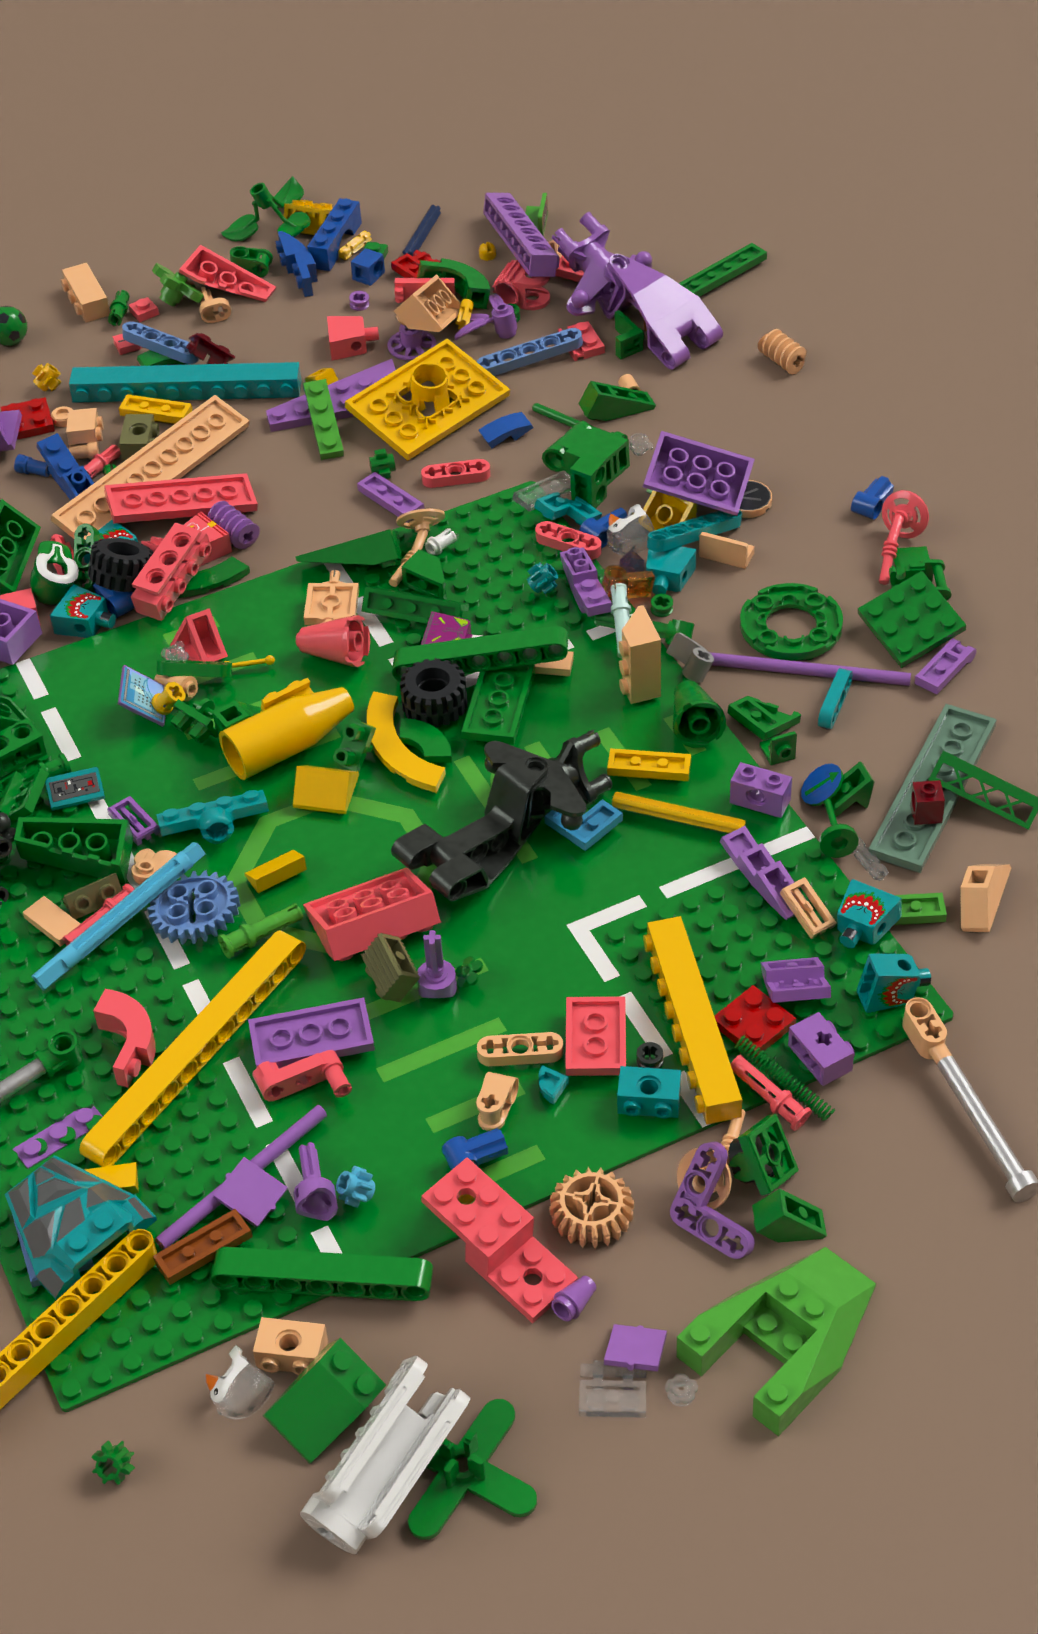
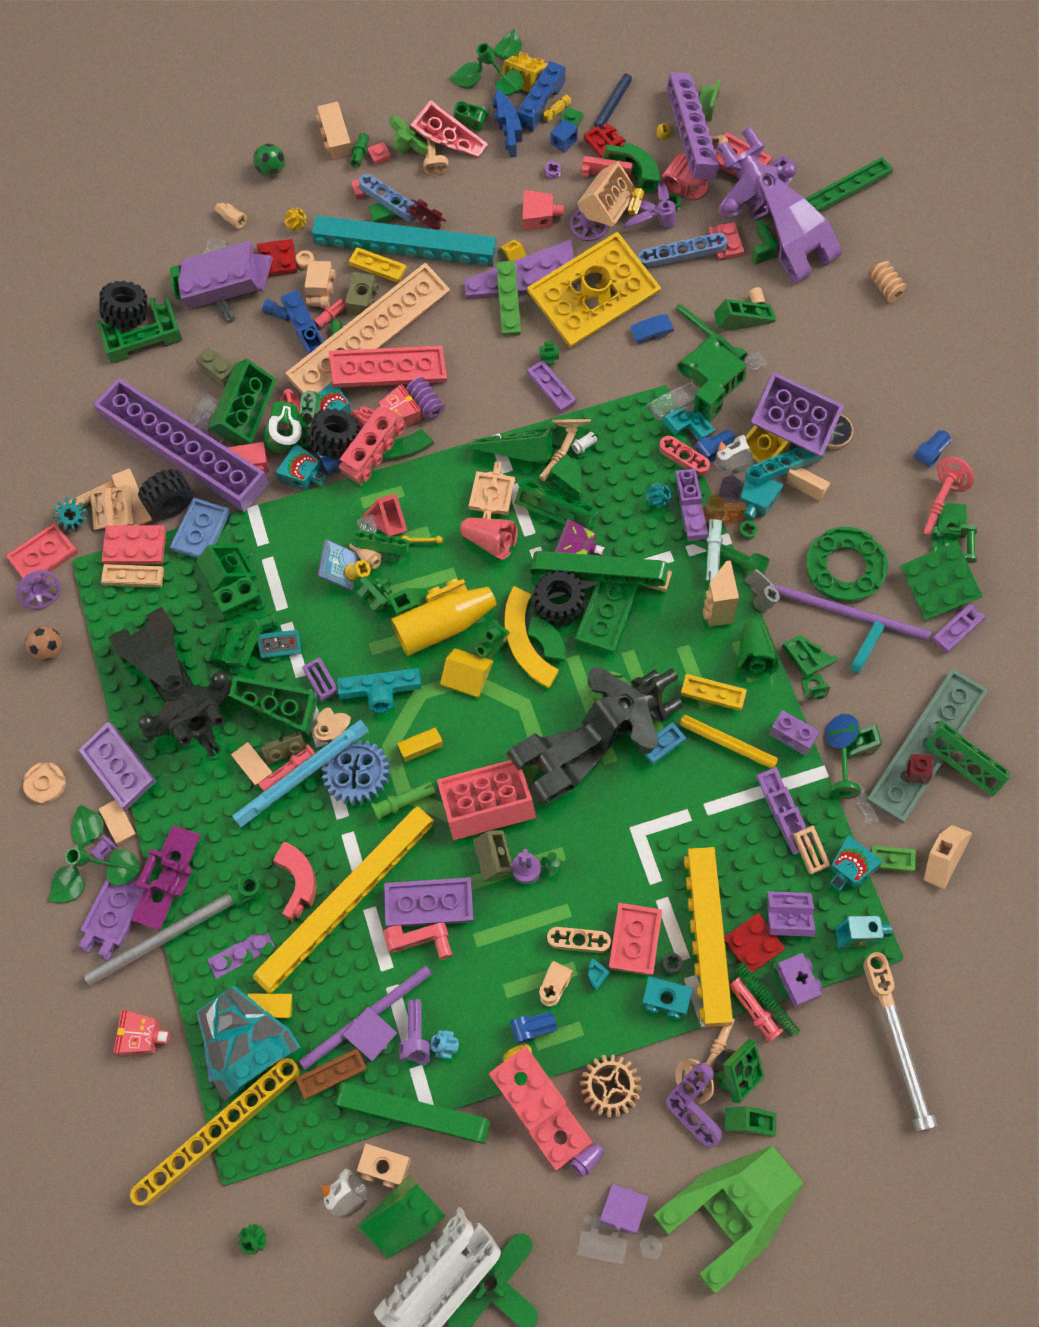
camera: 10 degrees right, 20 degrees up
(440, 474) = (619, 362): coral beam -> none

